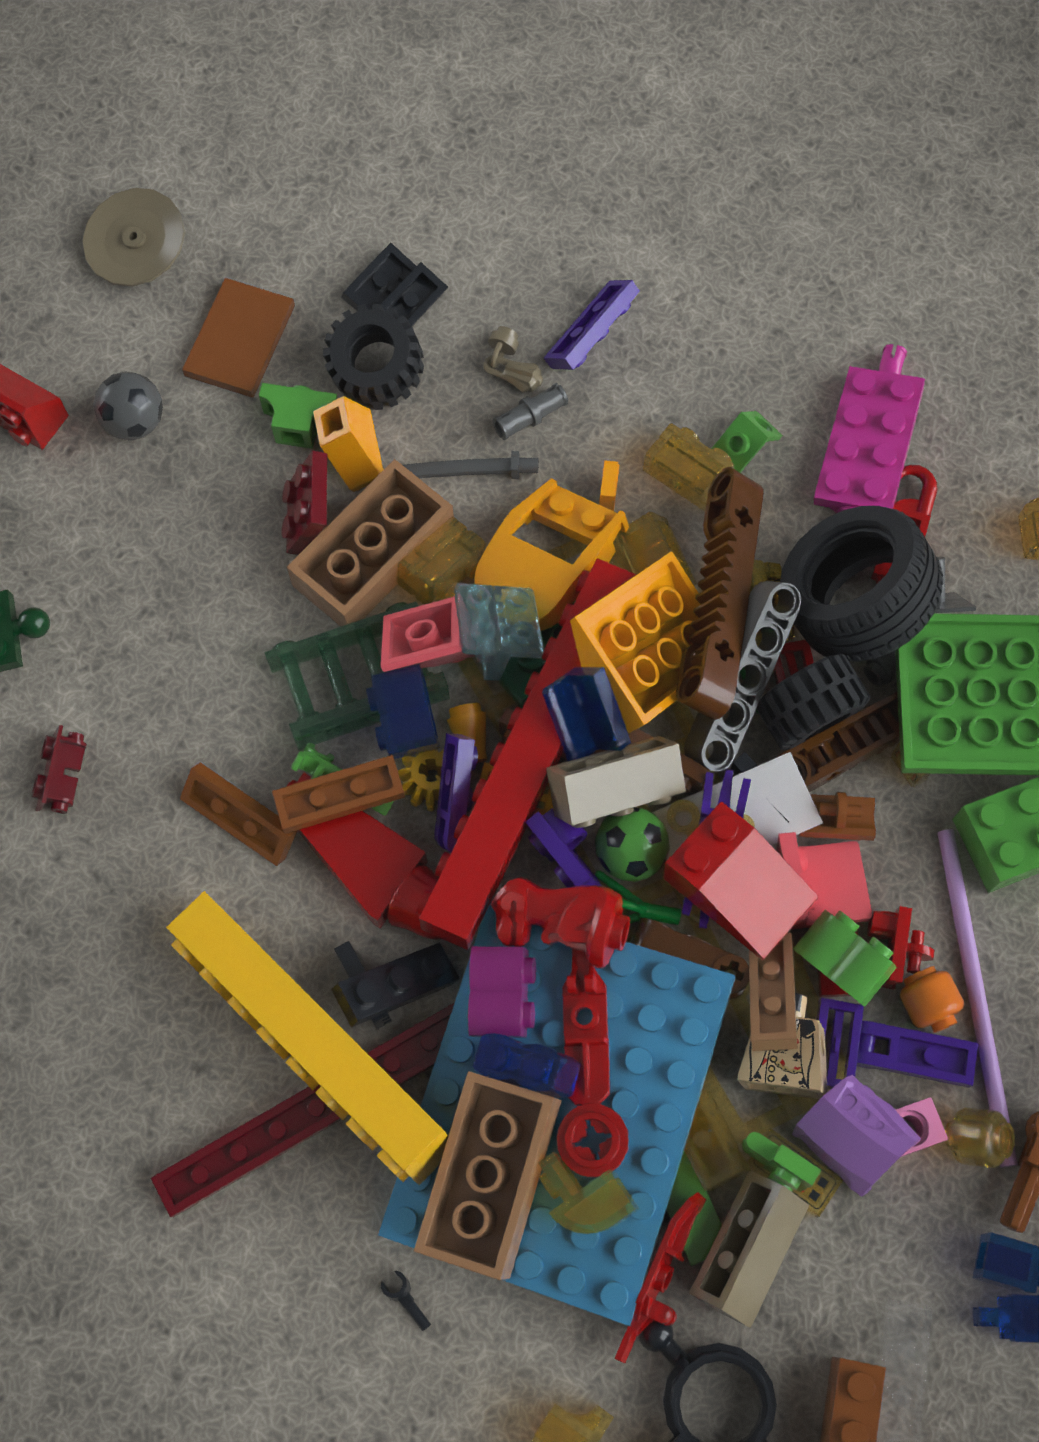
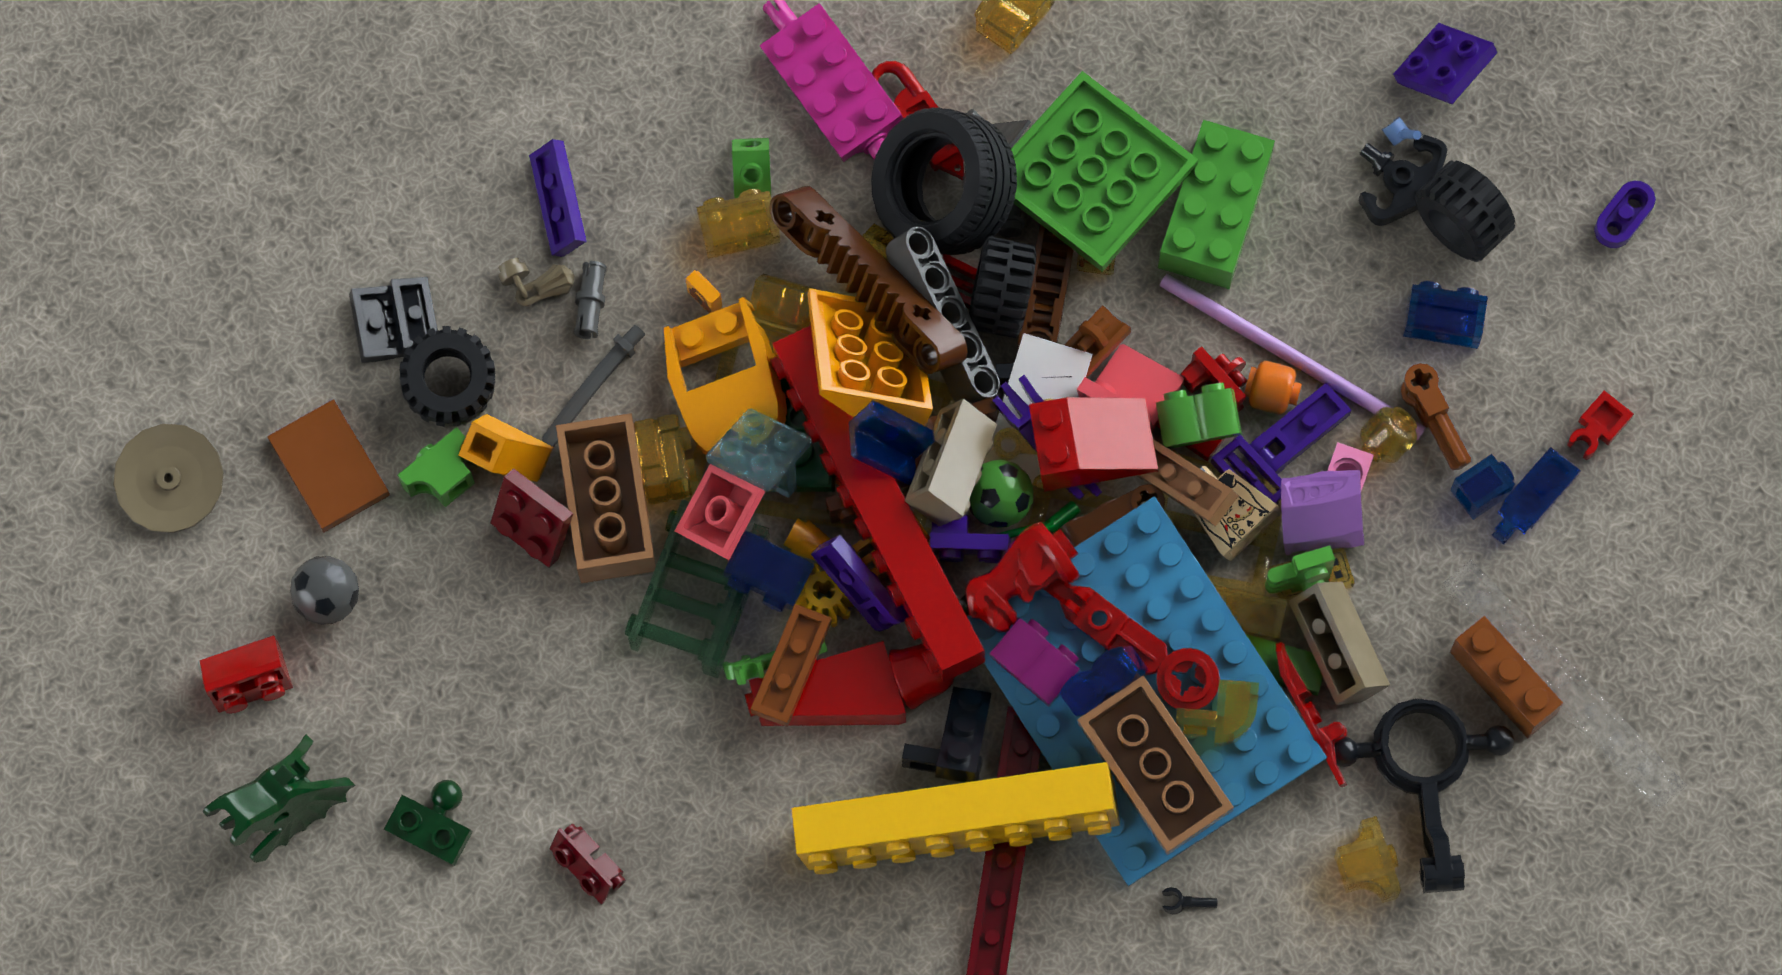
camera: 50 degrees left, 0 degrees up
(237, 813) = (735, 755): dark orange plate -> none

